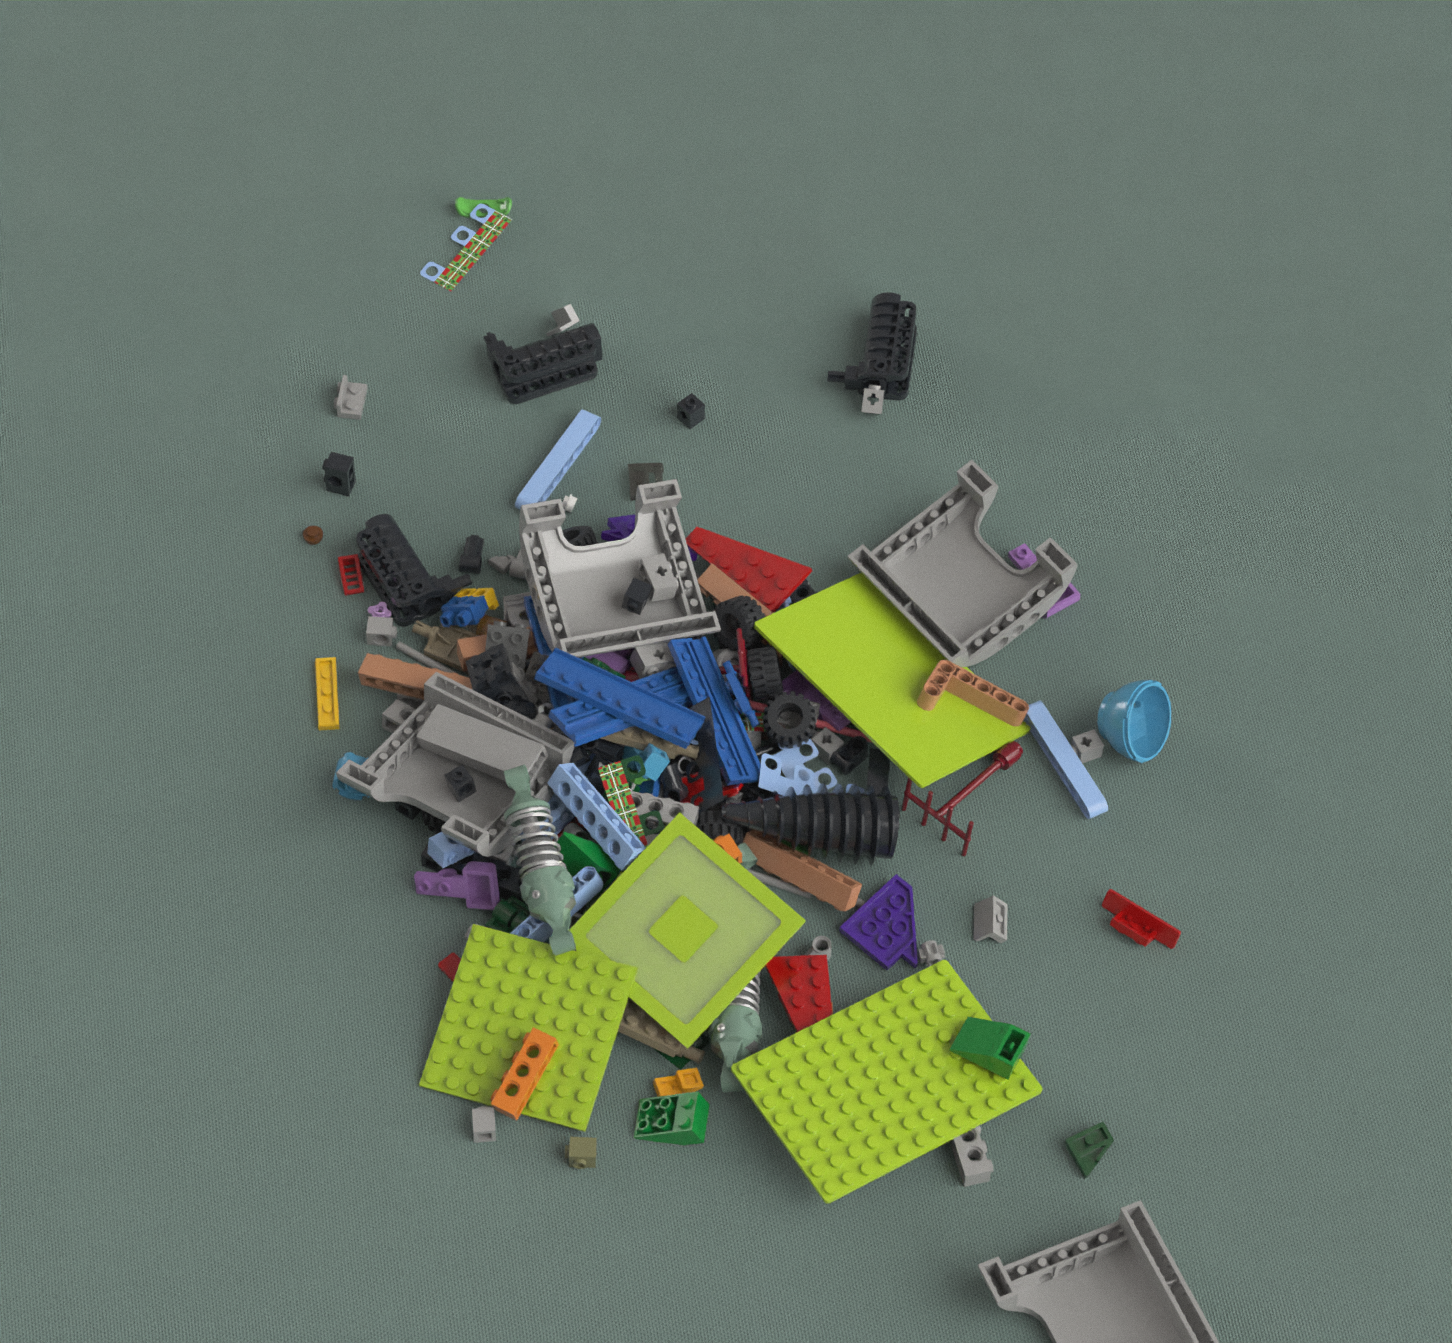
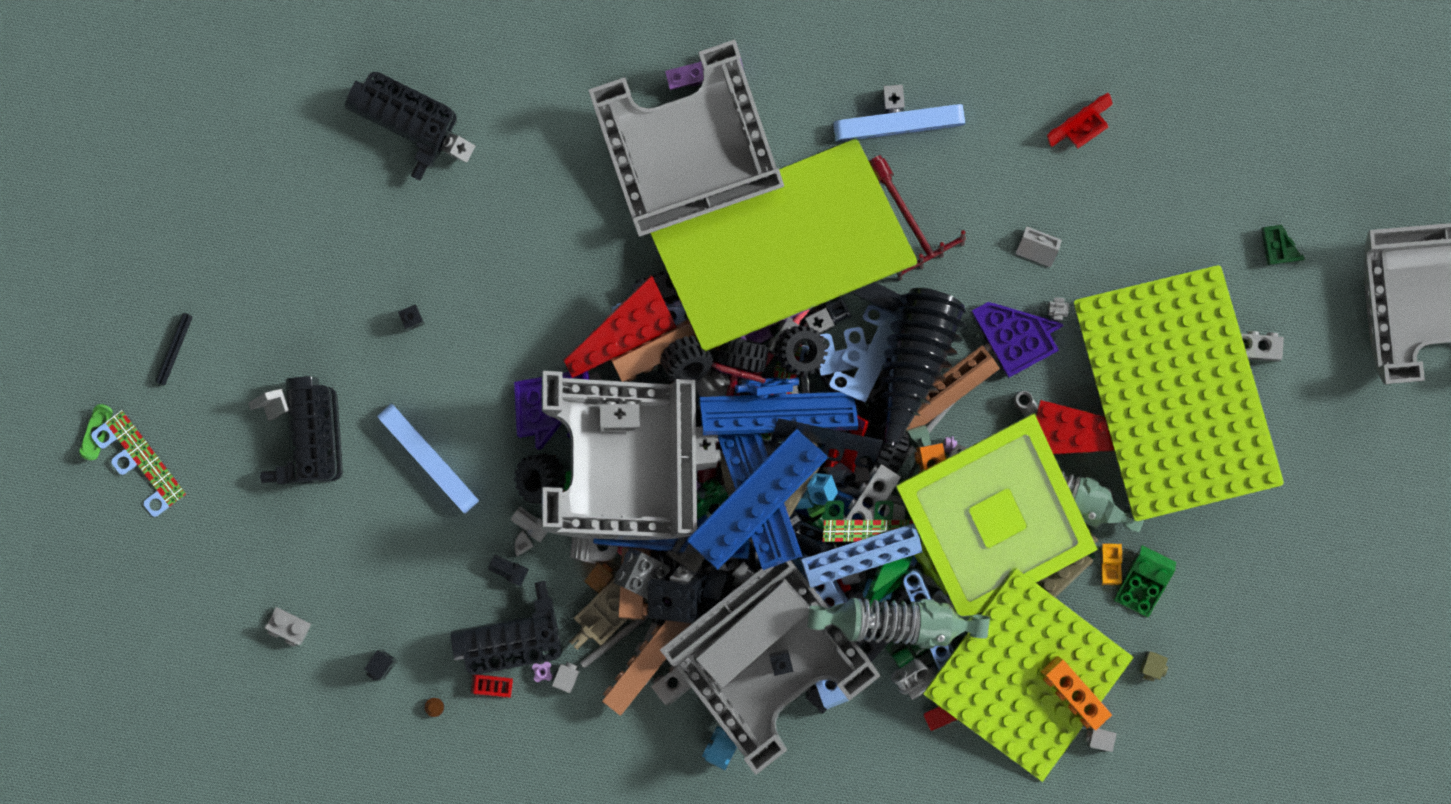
camera: 70 degrees left, 30 degrees up
(327, 693) = (614, 744): yellow tile -> none
(468, 607) = (575, 594): blue hips -> none
(476, 884) = (851, 714): medium lavender plate -> none
(486, 916) = (912, 675): none -> light grey piece
(568, 503) = (478, 463): white plate -> none
(586, 243) = (173, 349): none -> black axle
(636, 596) = (638, 444): black brick -> none
(639, 475) = (473, 390): clear smoke plate -> none
(972, 690) = (813, 179): nougat beam -> none
(991, 1045) = (1177, 295): green slope -> none
(1140, 729) = (892, 49): dark azure piece -> none

